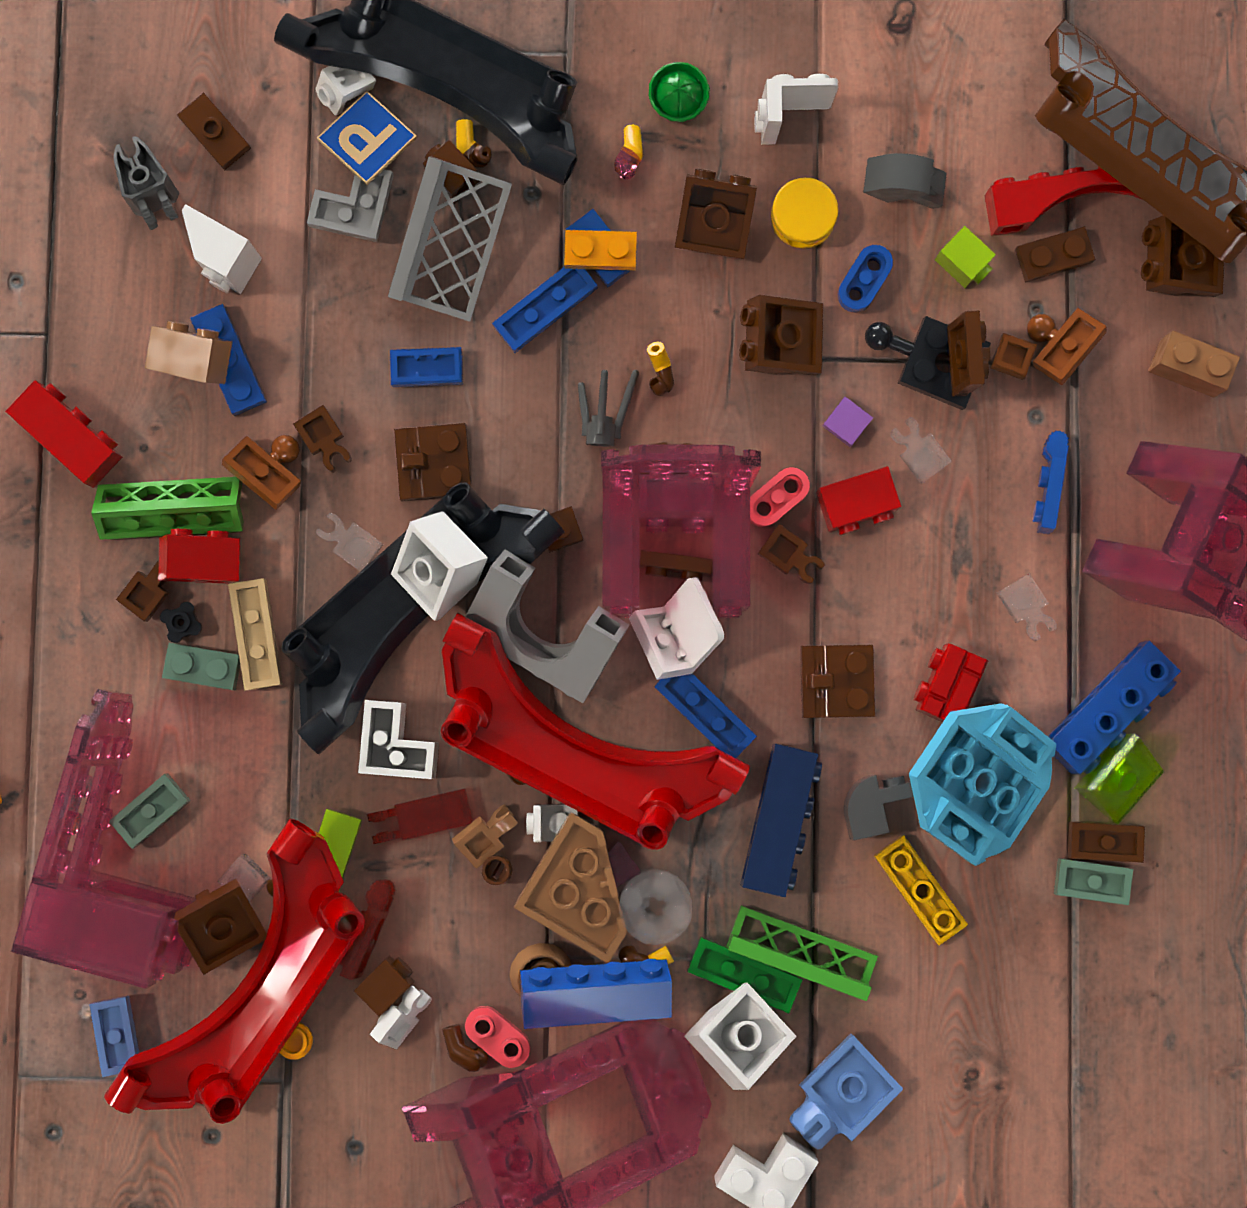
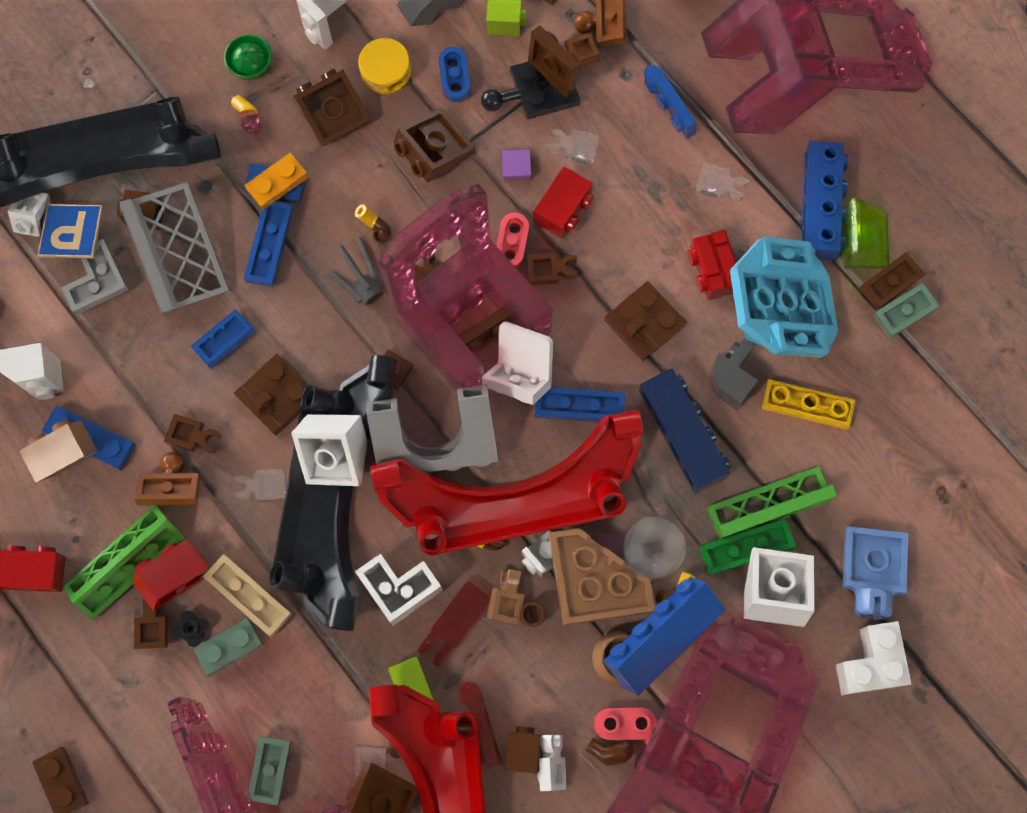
camera: 35 degrees left, 10 degrees down
(473, 151) = (134, 184): arm -> none

